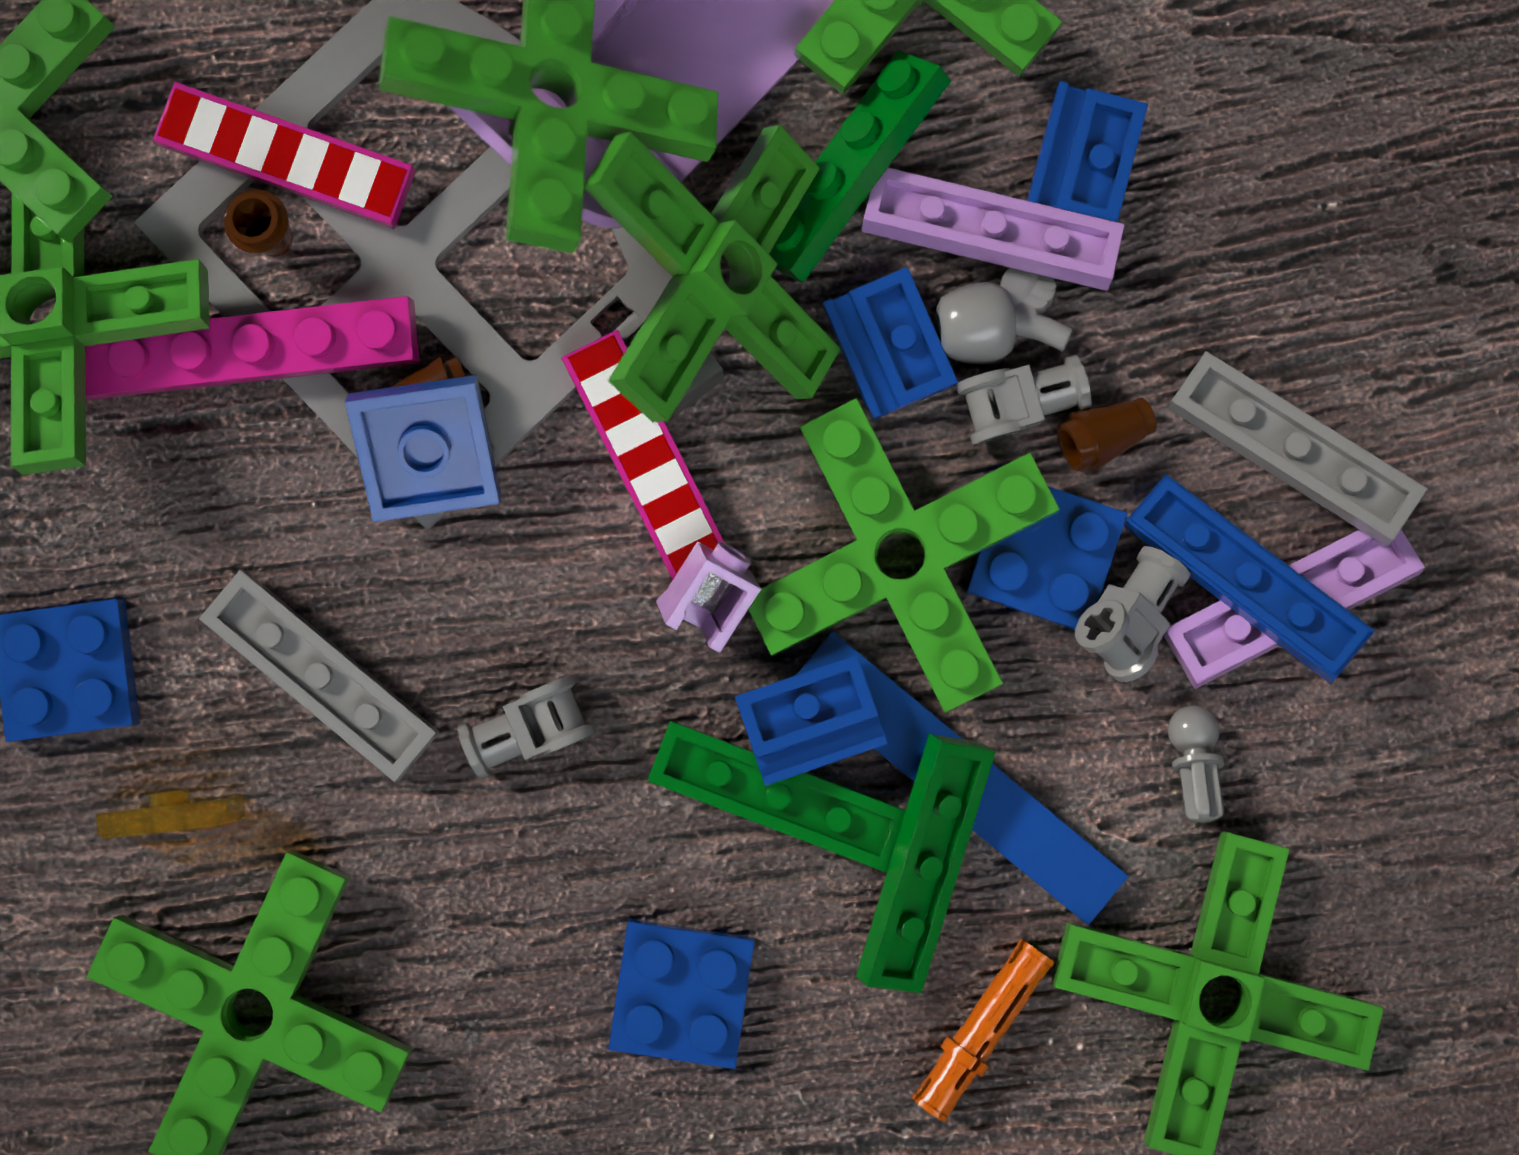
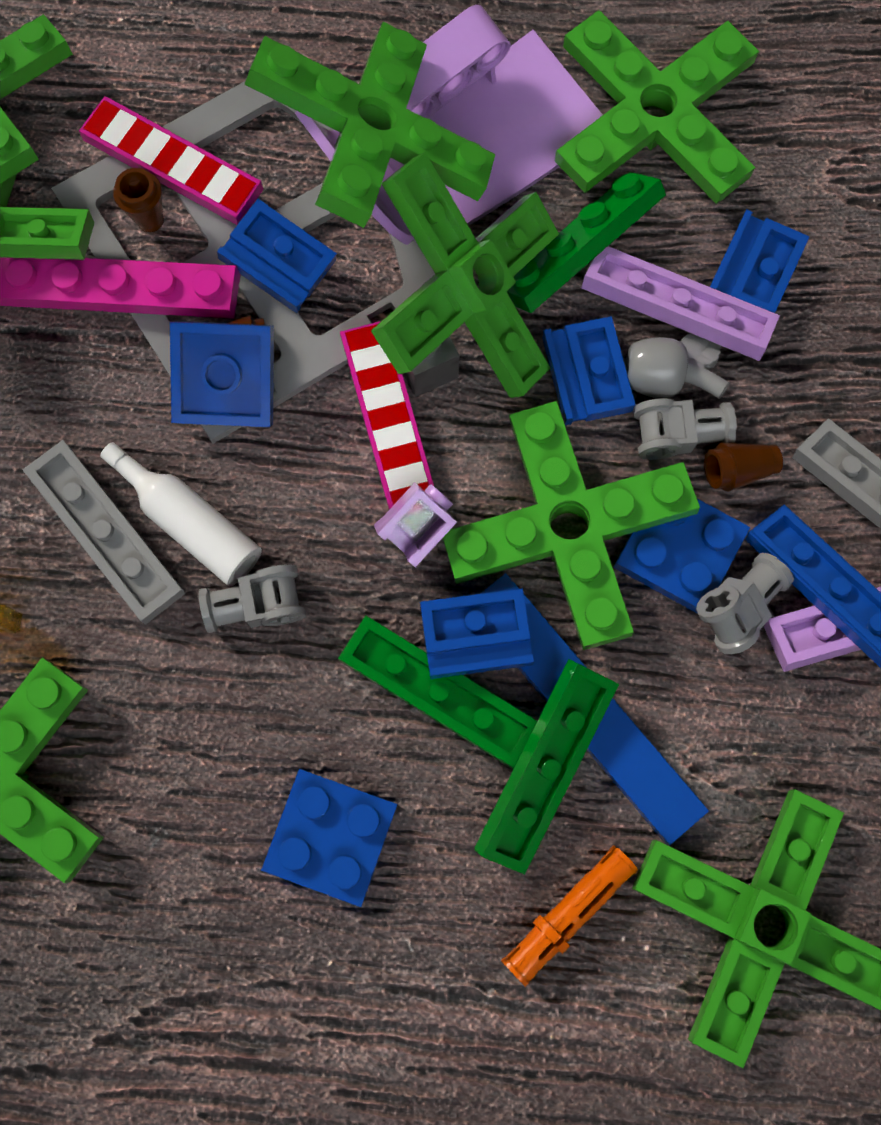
camera: 10 degrees right, 10 degrees down
(420, 639) = (188, 518): none -> white piece
(456, 266) = (277, 255): none -> blue plate
(1194, 733) = (777, 709): light grey axle -> none

